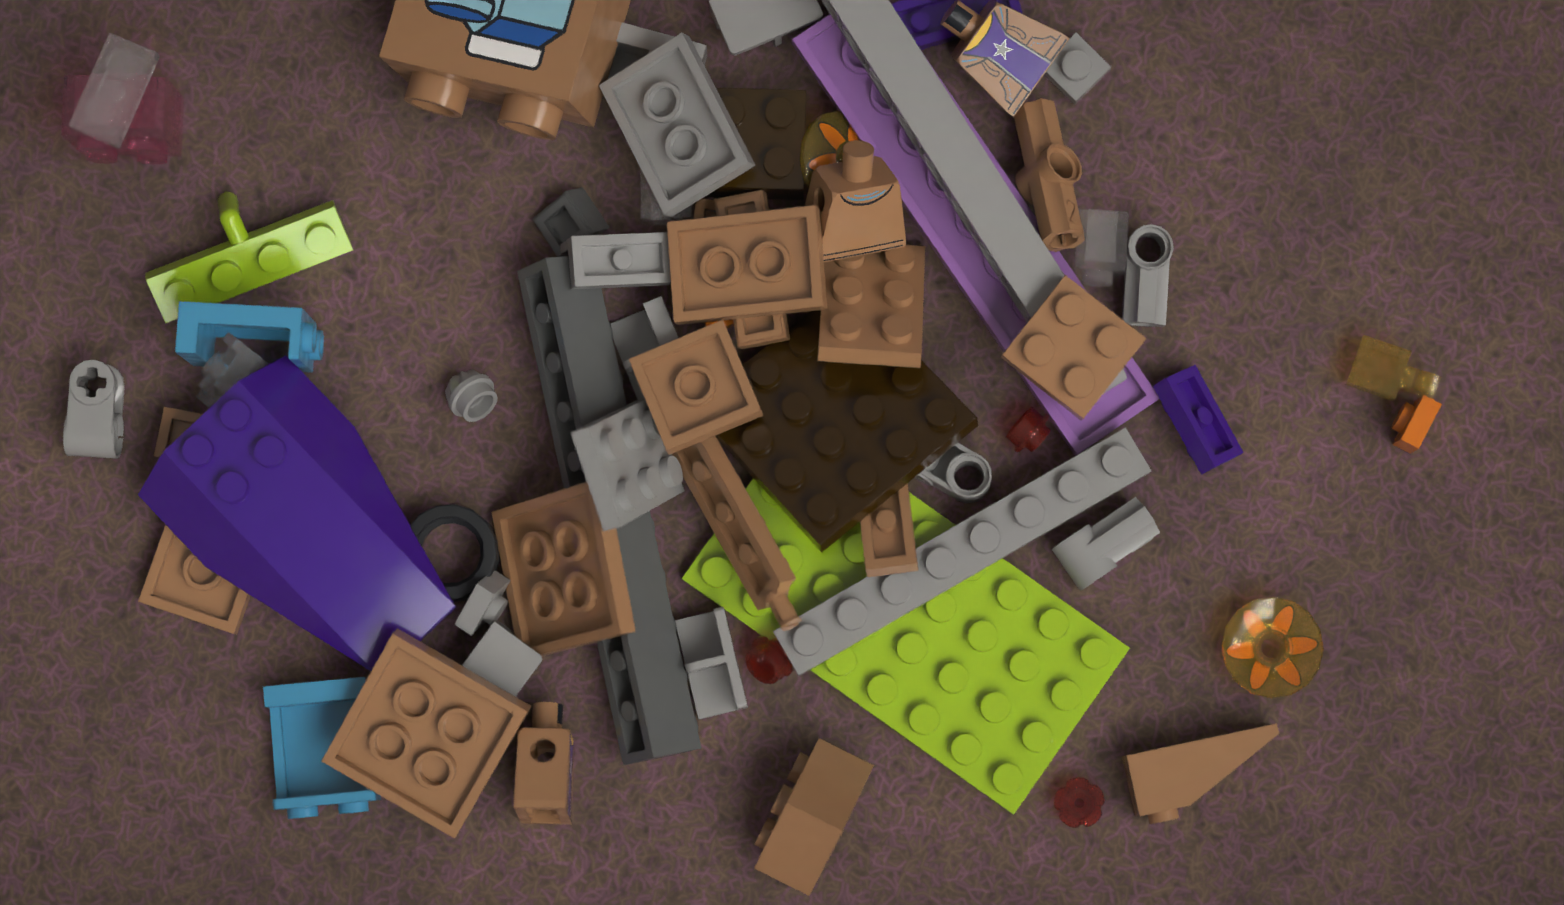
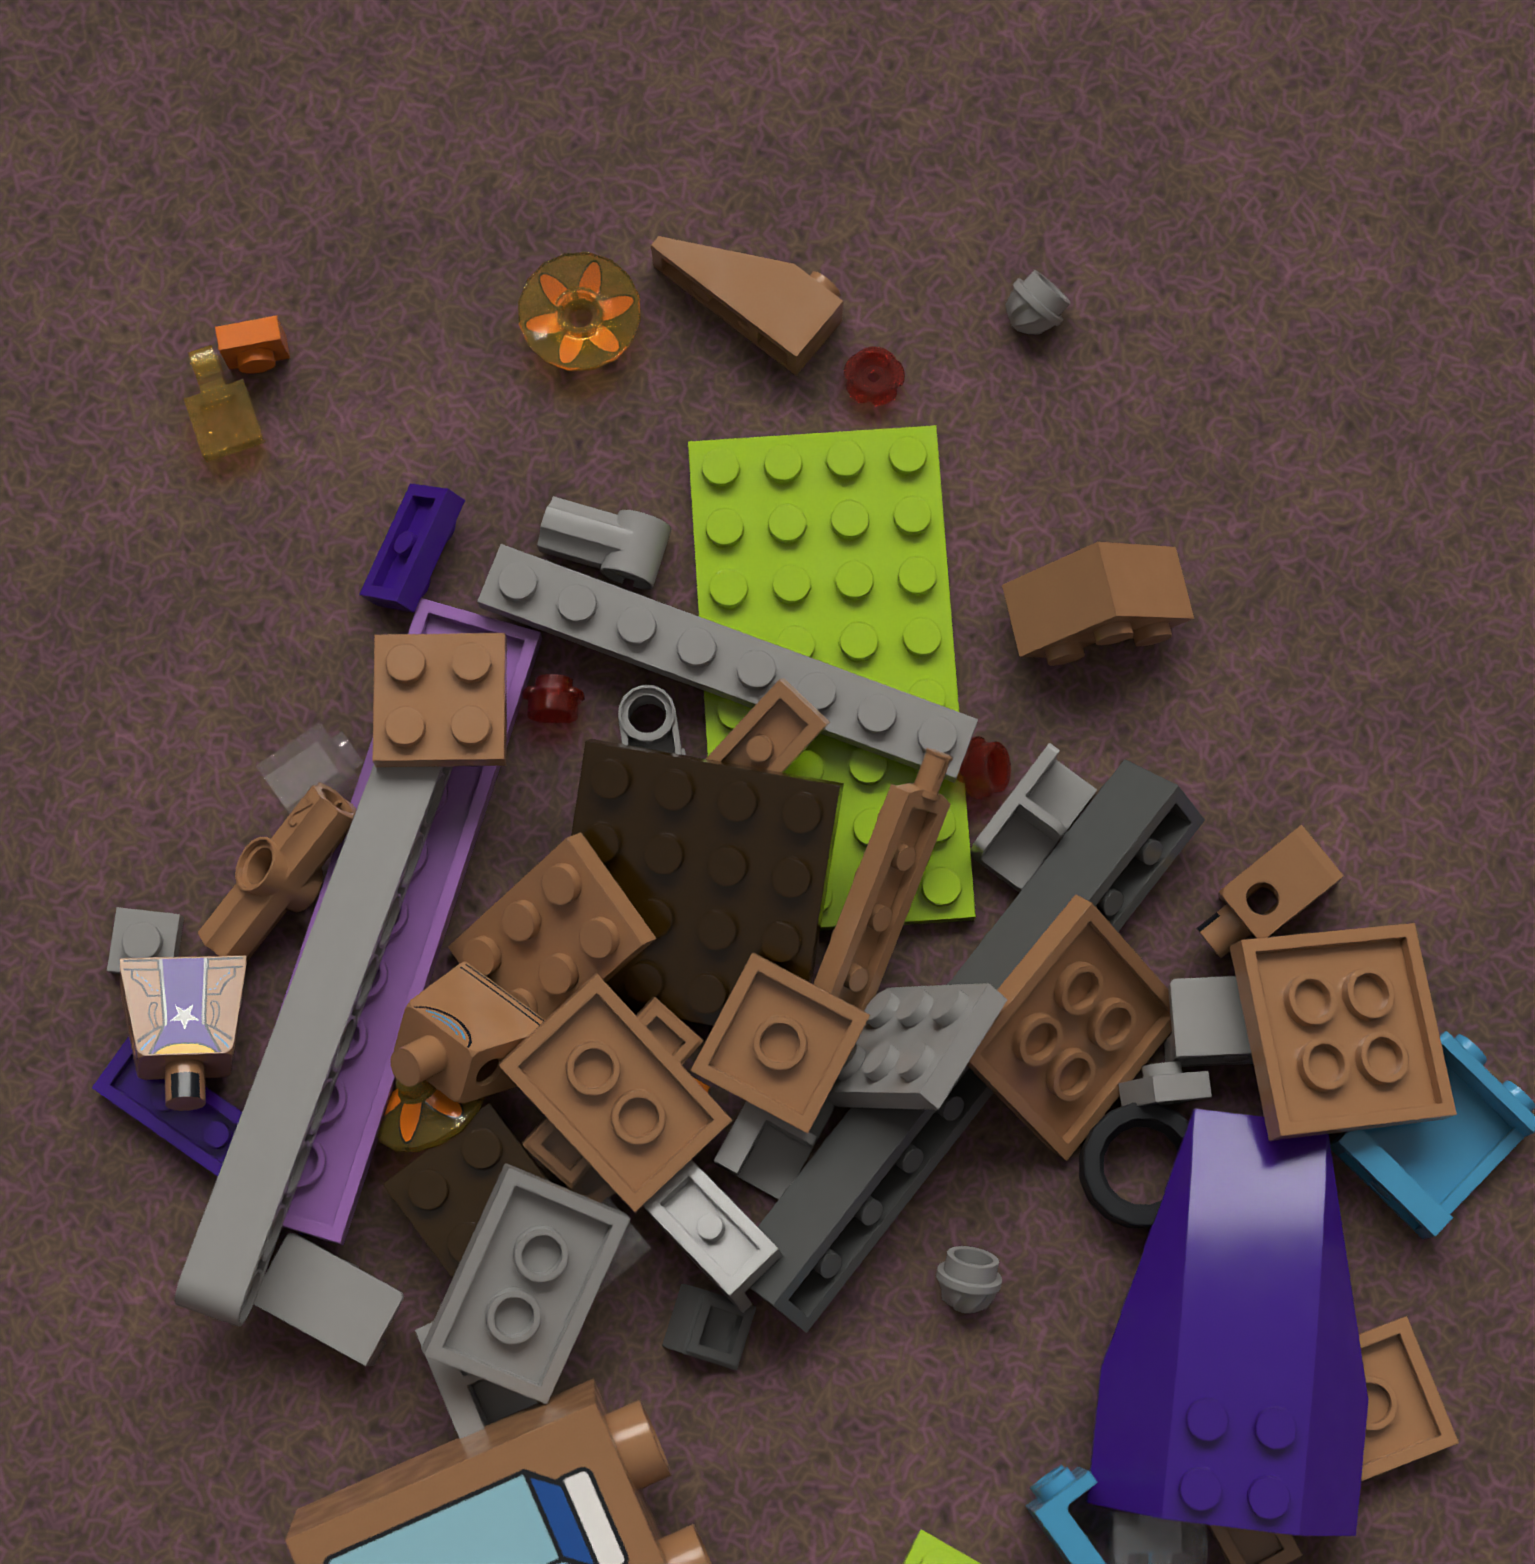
camera: 130 degrees left, 5 degrees down
(1146, 282) = (316, 696): light grey piece -> none

